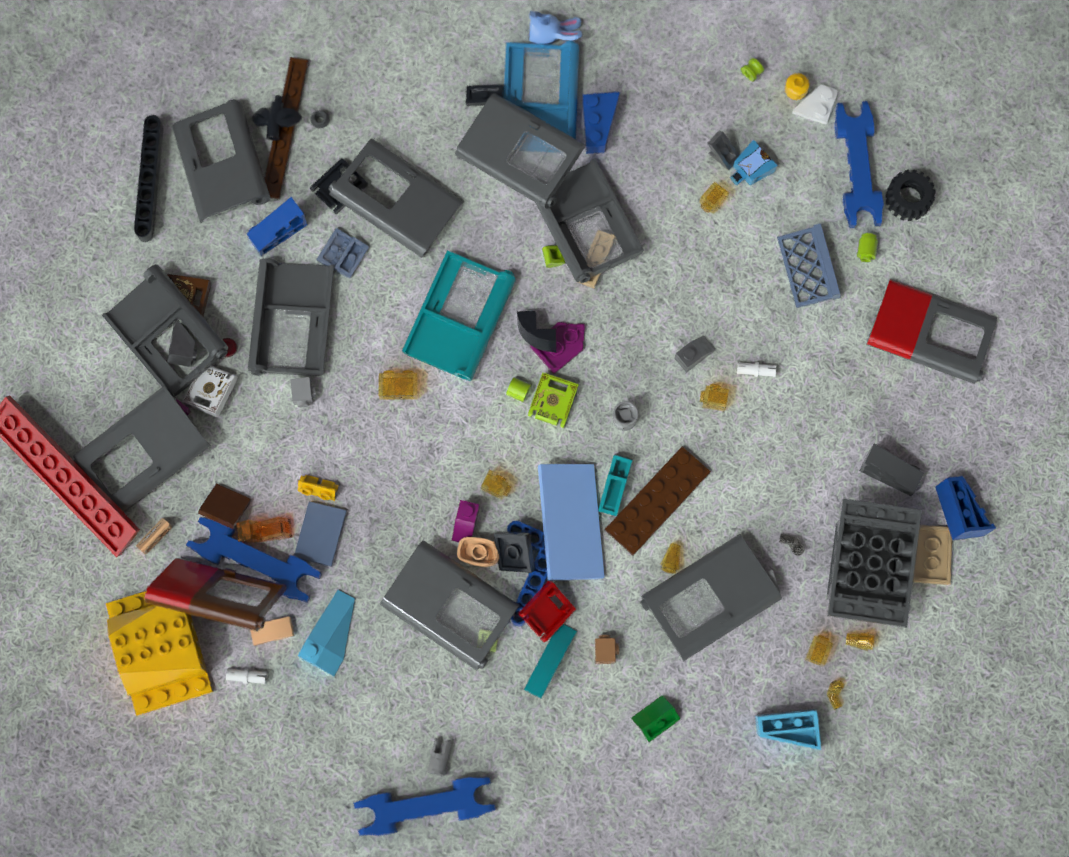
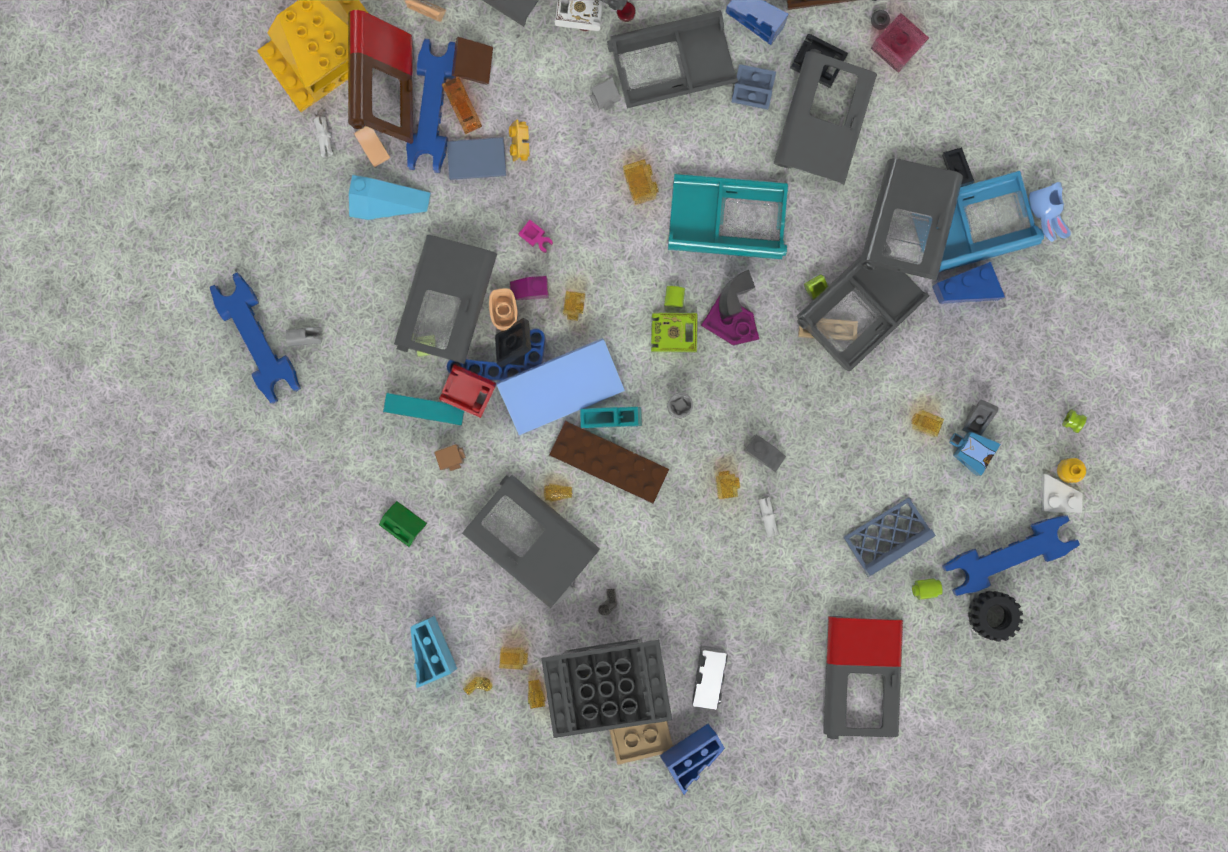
camera: 75 degrees right, 10 degrees up
(350, 108) = (899, 42): none -> clear pink brick
(414, 503) = (533, 234): none -> dark pink plate

